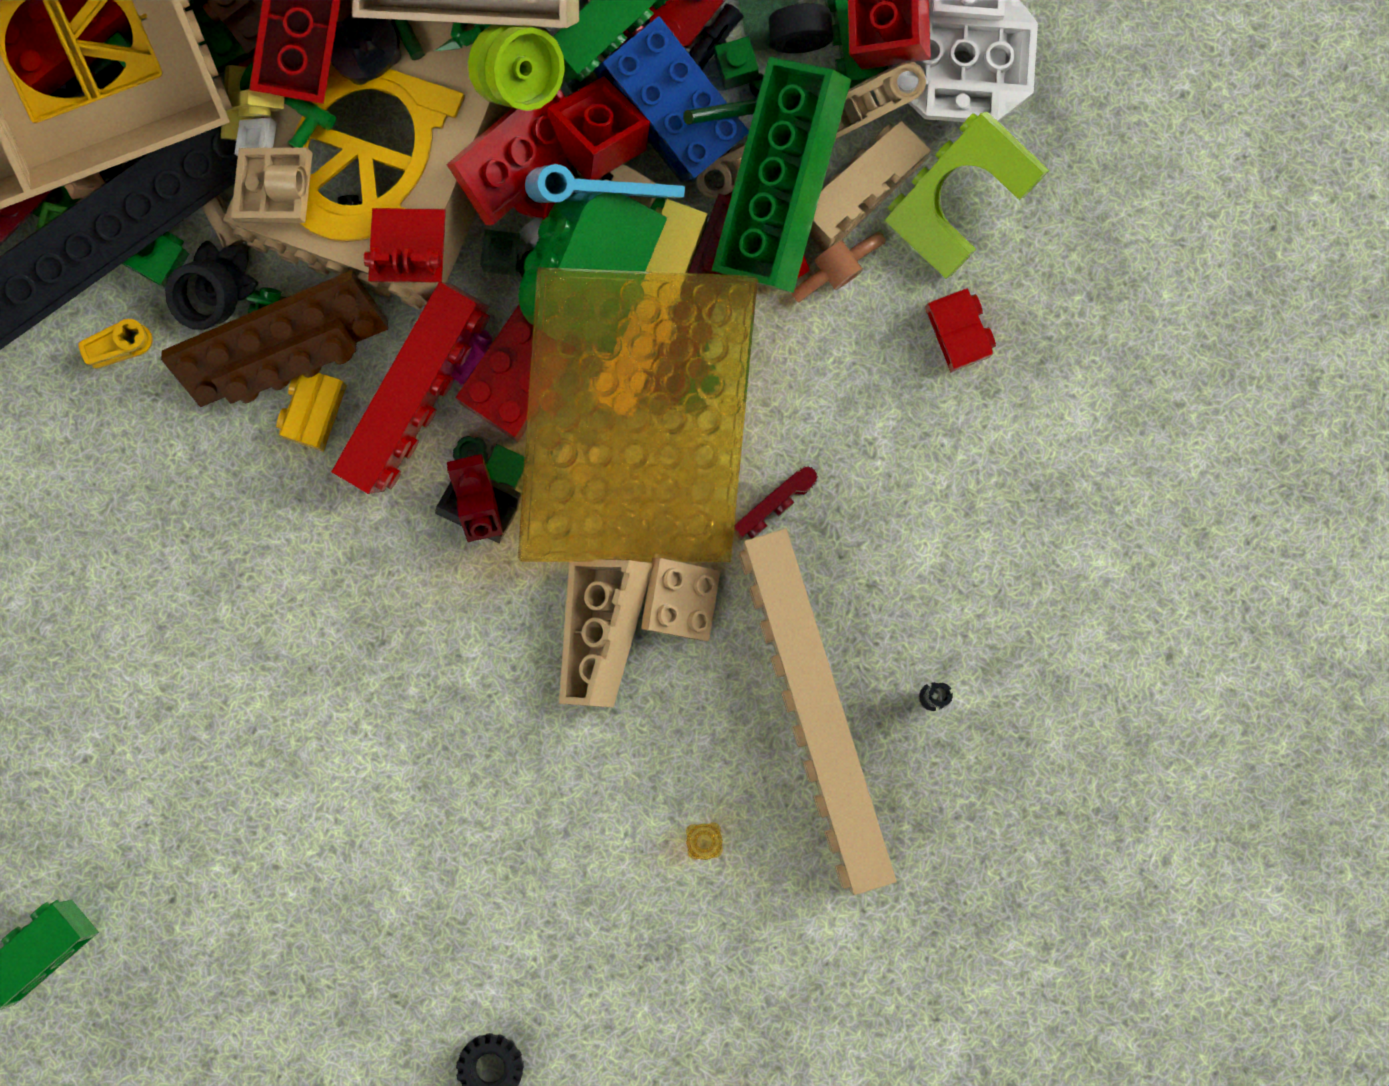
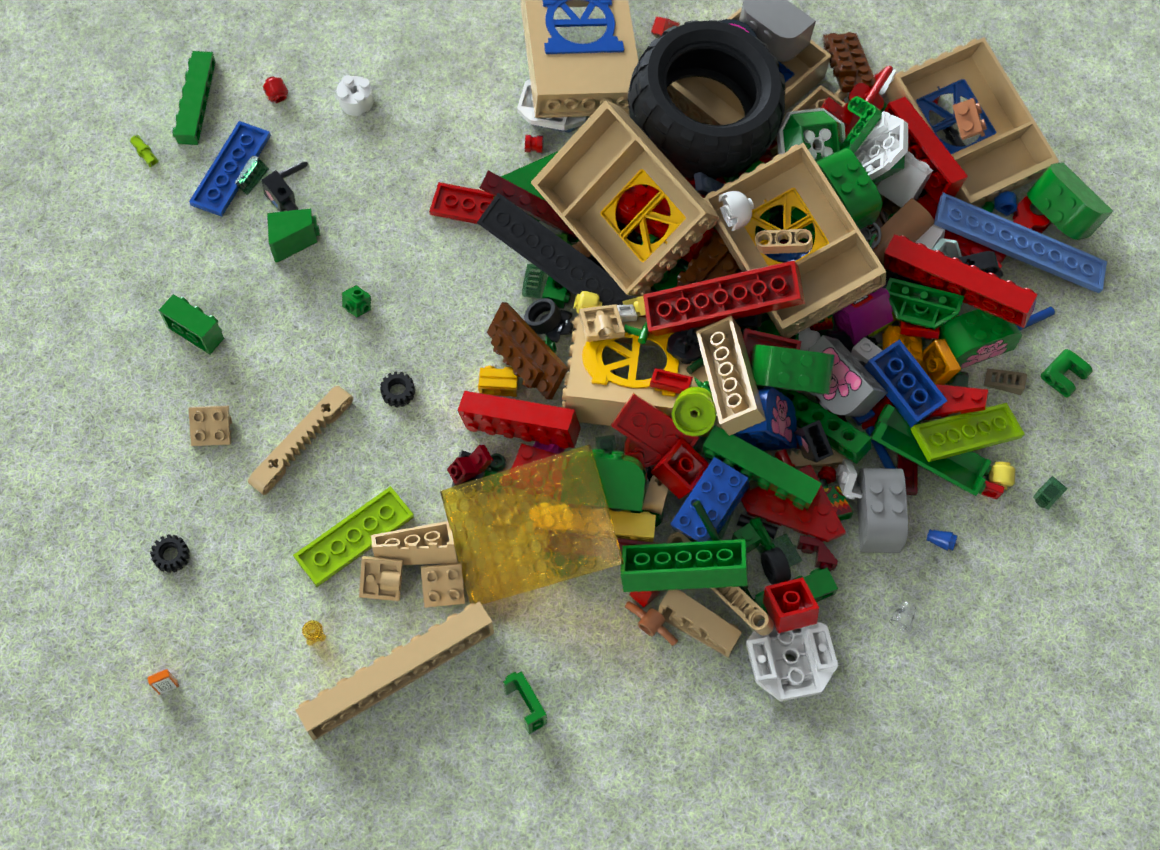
camera: 75 degrees right, 20 degrees down
(69, 632) = (356, 301): none -> green brick
(112, 345) = (507, 286): yellow piece -> none
(139, 302) = (530, 291): none -> clear green slope
(208, 202) = (586, 300): none -> light yellow head
(253, 592) = (395, 379): none -> black tyre
(256, 955) = (210, 425): none -> tan plate
(271, 712) = (333, 404): none -> tan gear
(406, 245) = (586, 386): red hinge -> none
(435, 93) = (670, 381): none -> red tile
(544, 736) = (352, 536): none -> lime plate
(557, 183) = (641, 447): medium azure piece -> none
(641, 703) = (380, 578): none -> tan plate
(722, 34) = (765, 538): none -> green axle
(777, 502) = (509, 622): dark red hinge -> none
(919, 214) = (693, 656): lime arch -> none
(943, 699) = (418, 729): black pin -> none
(959, 493) = (538, 716): none -> green panel
(960, 329) = (634, 697): red brick -> none

